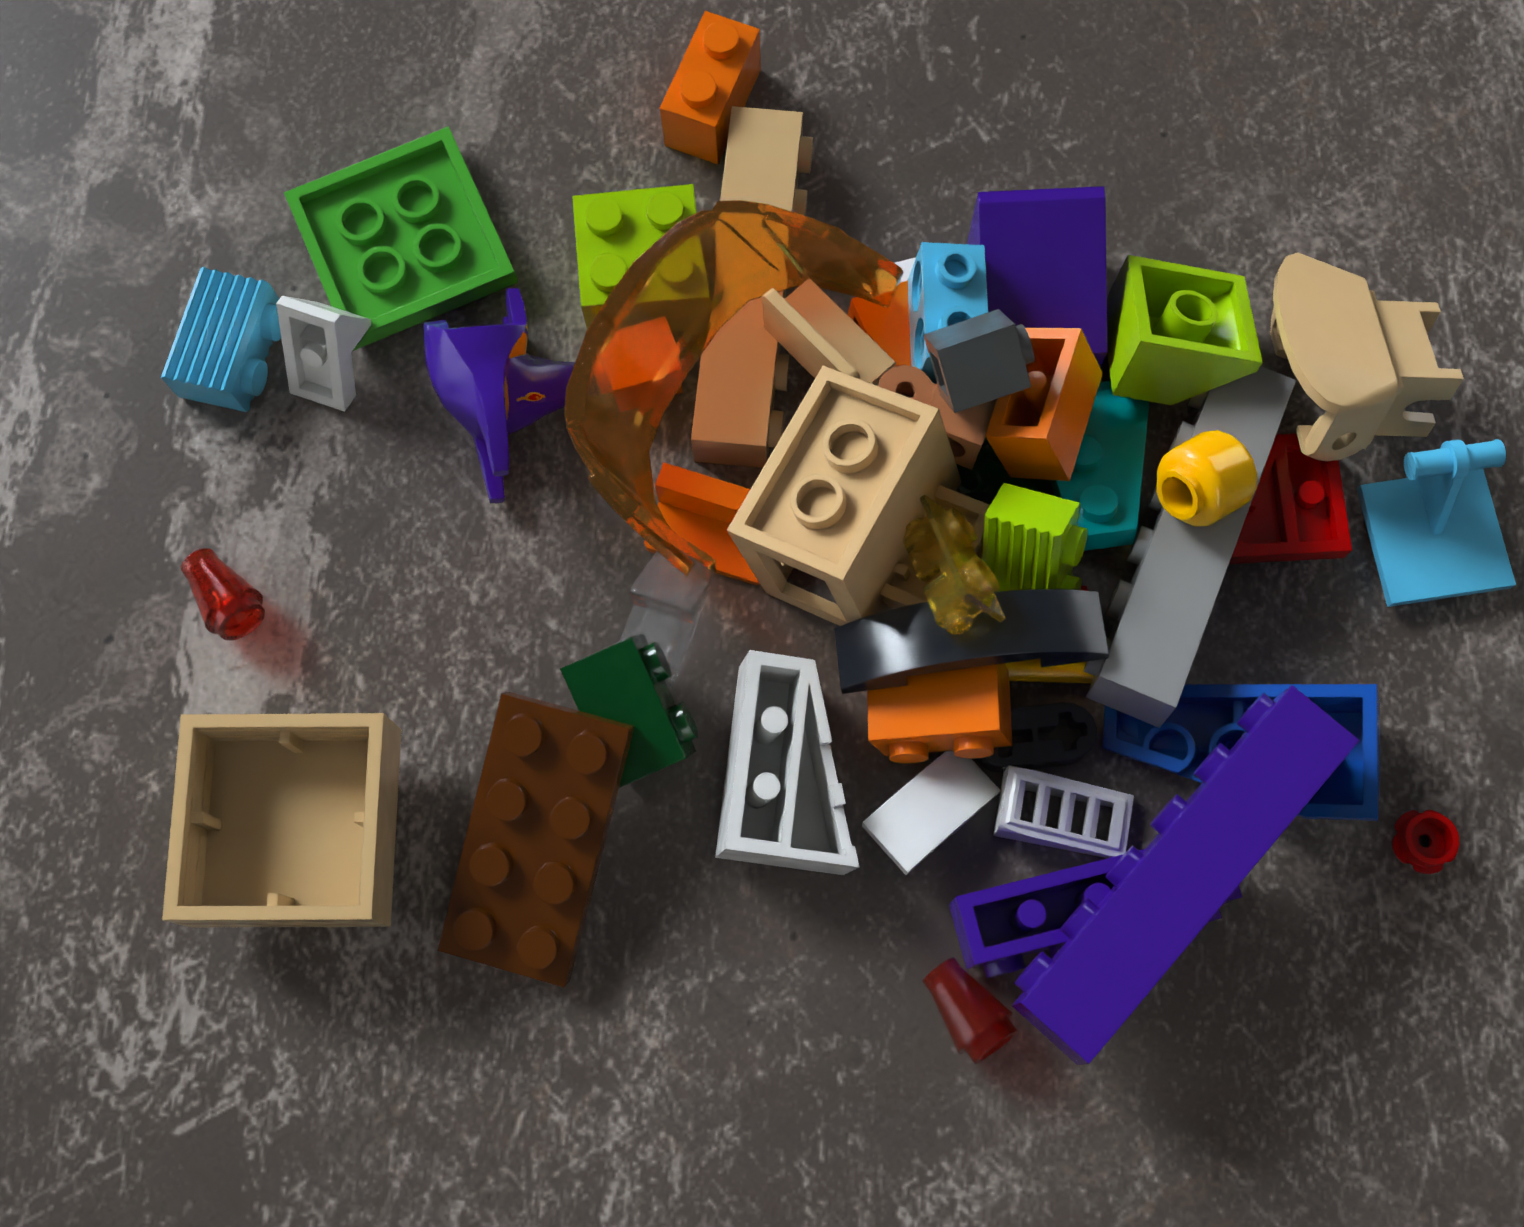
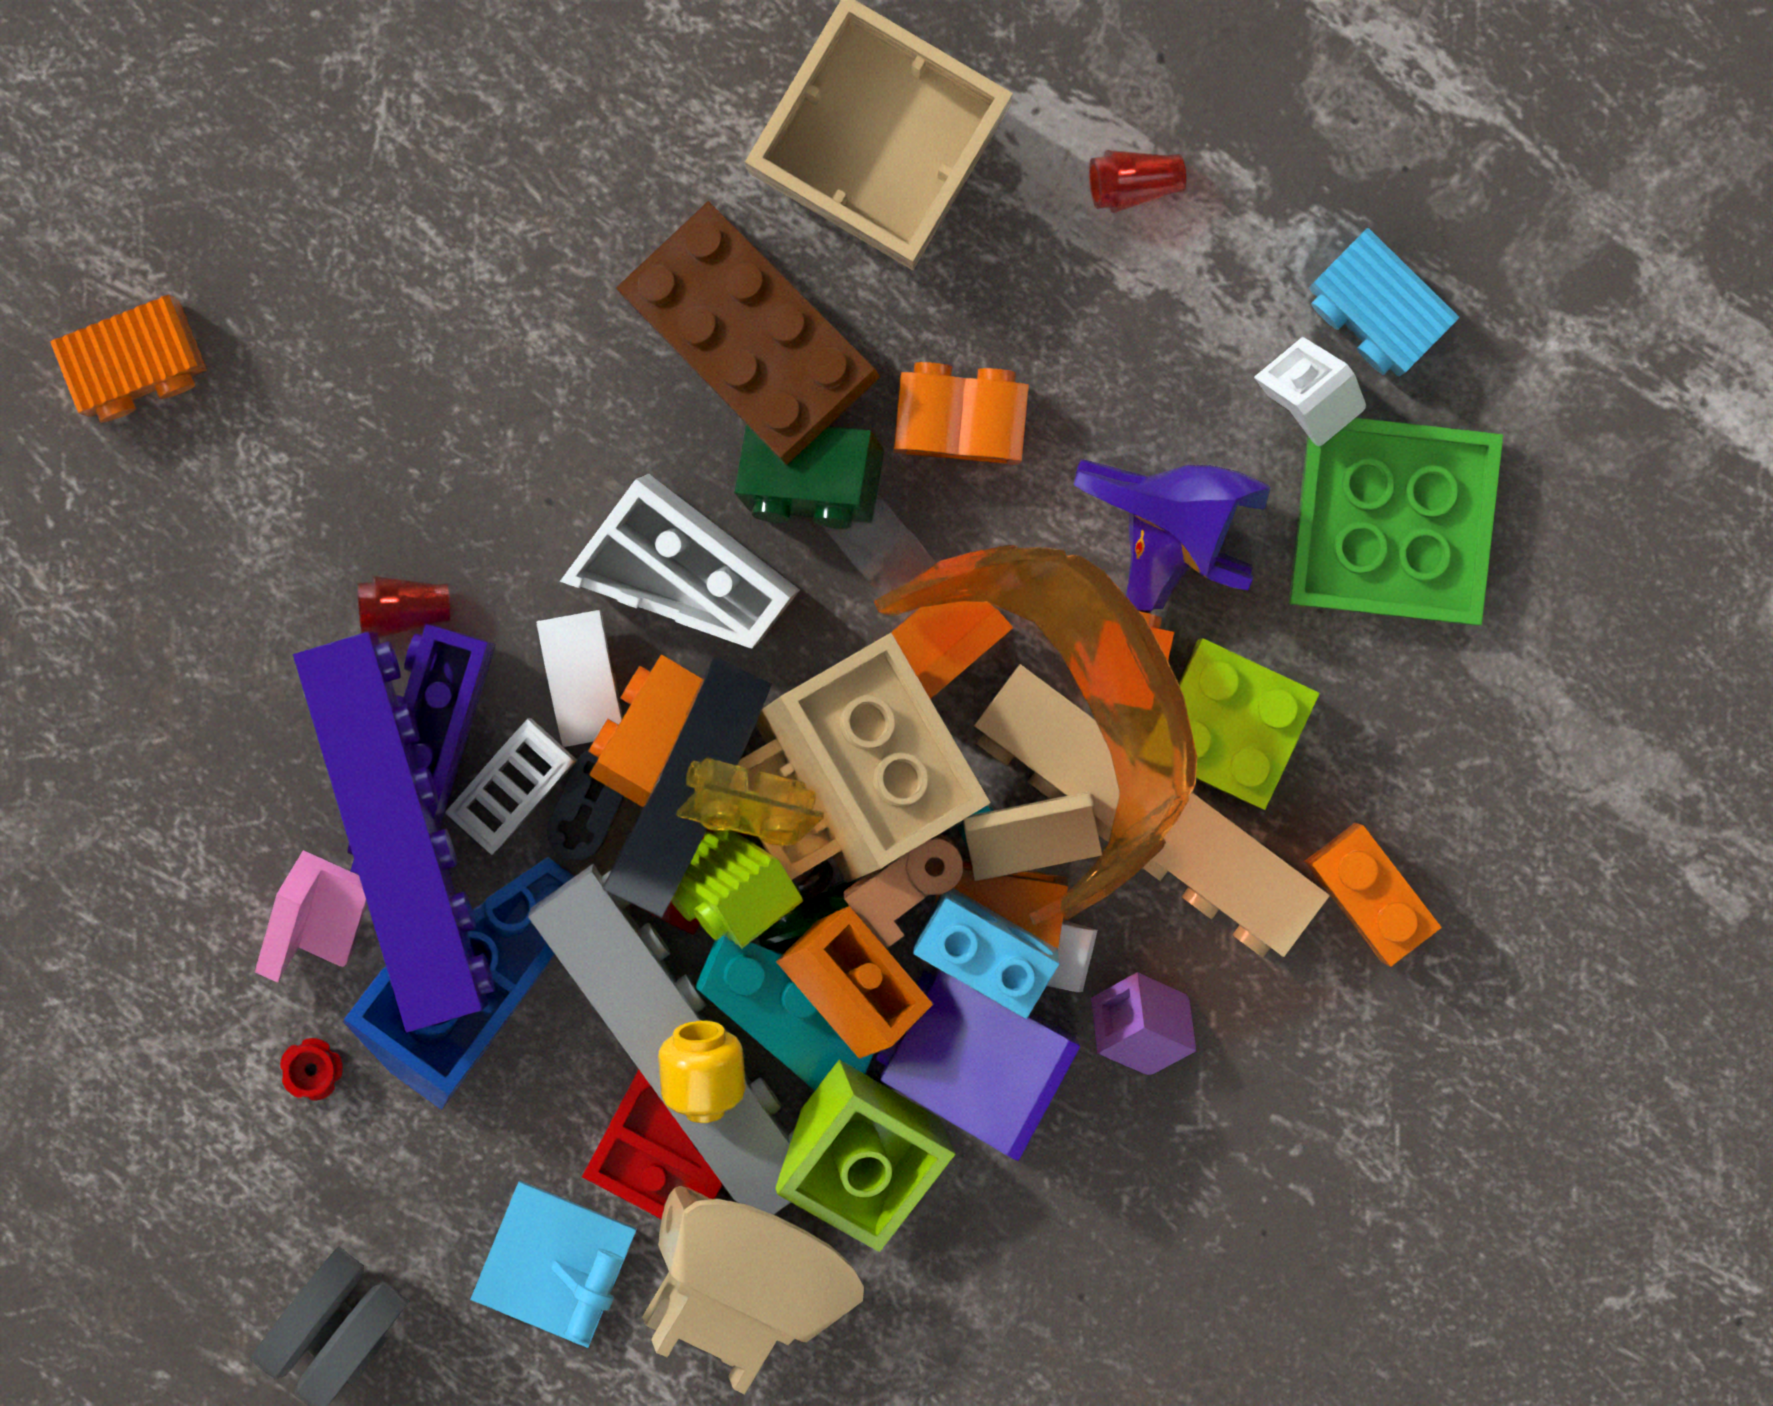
camera: 110 degrees right, 15 degrees up
(508, 618) = (960, 415): none -> orange brick
(923, 196) = (1143, 1024): none -> medium lavender panel
(980, 359) = (908, 934): dark grey brick -> none
(1289, 913) = (313, 911): none -> bright pink panel

